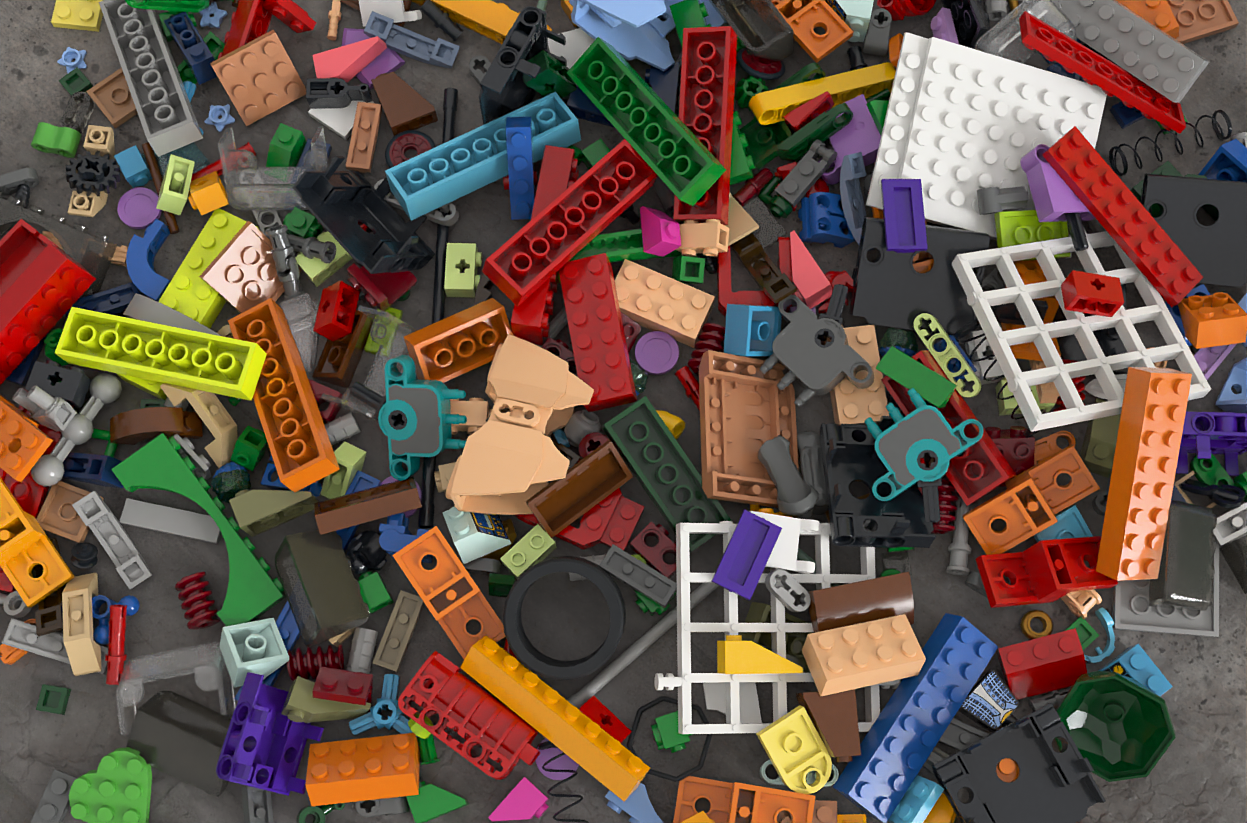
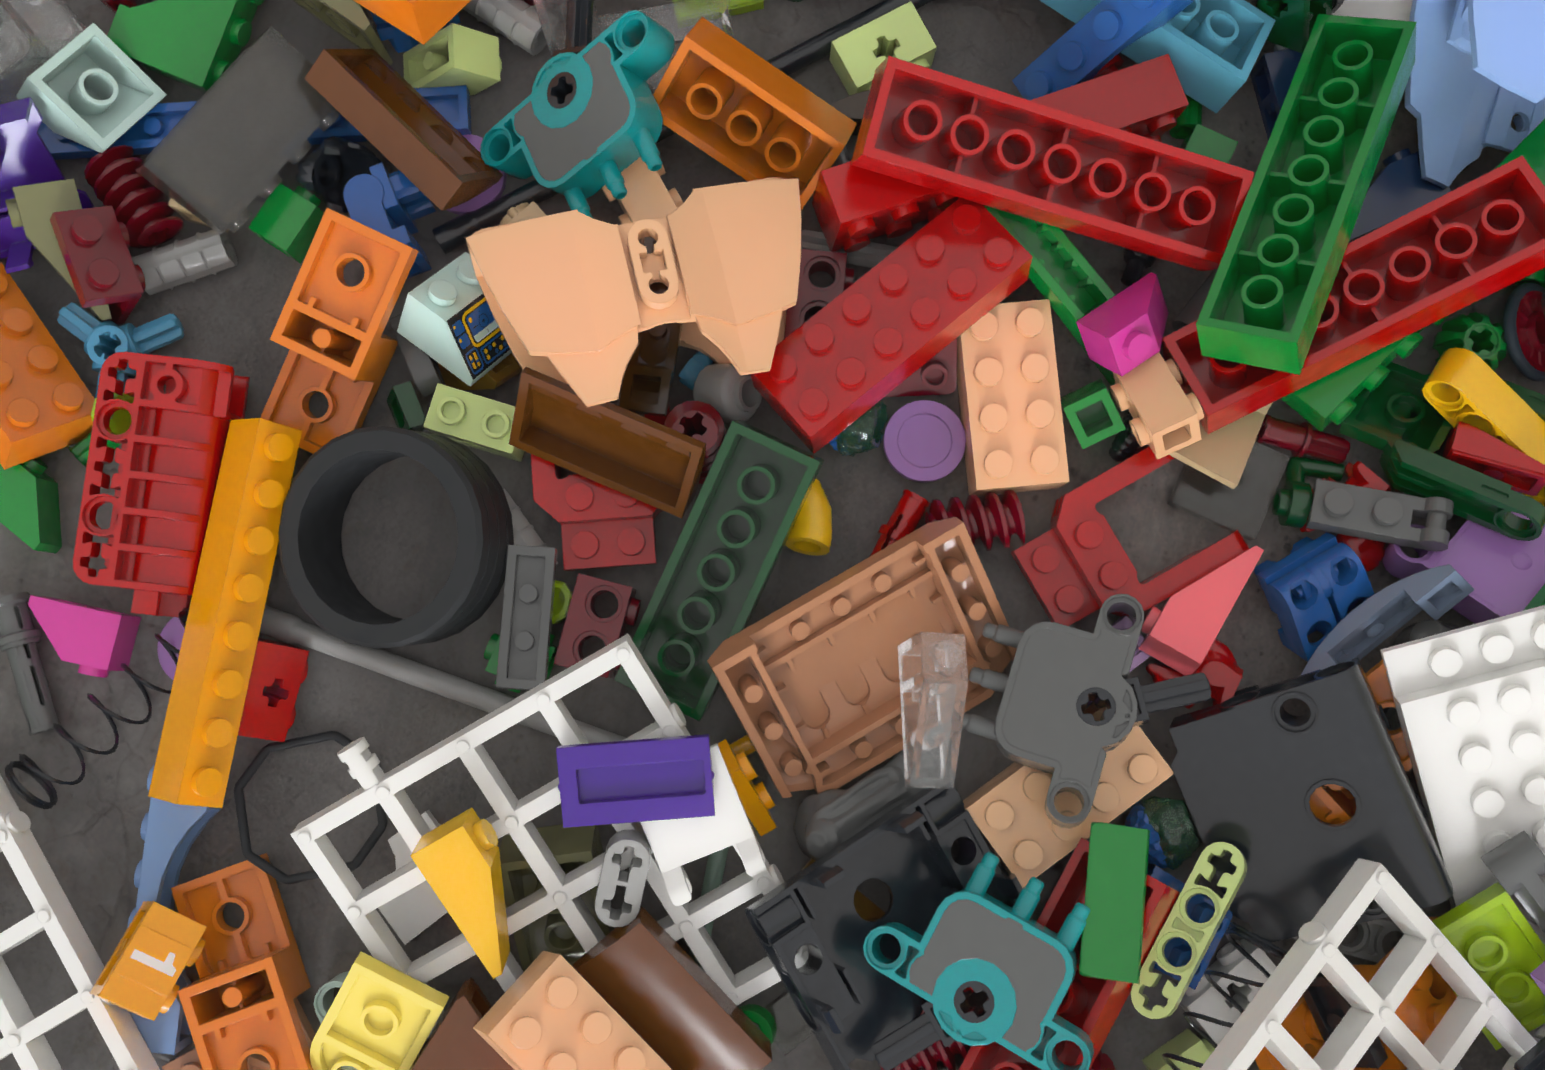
camera: 55 degrees right, 10 degrees up
(398, 631) = (237, 297): dark tan plate -> none
(666, 733) = (313, 793): green brick -> none
(751, 329) = (1045, 573): dark azure slope -> none
(762, 269) = (1163, 537): dark brown slope -> none
(784, 411) = (932, 706): none -> clear slope
(793, 494) = (798, 800): dark grey hair -> none
(904, 215) = (1400, 729): dark purple piece -> none

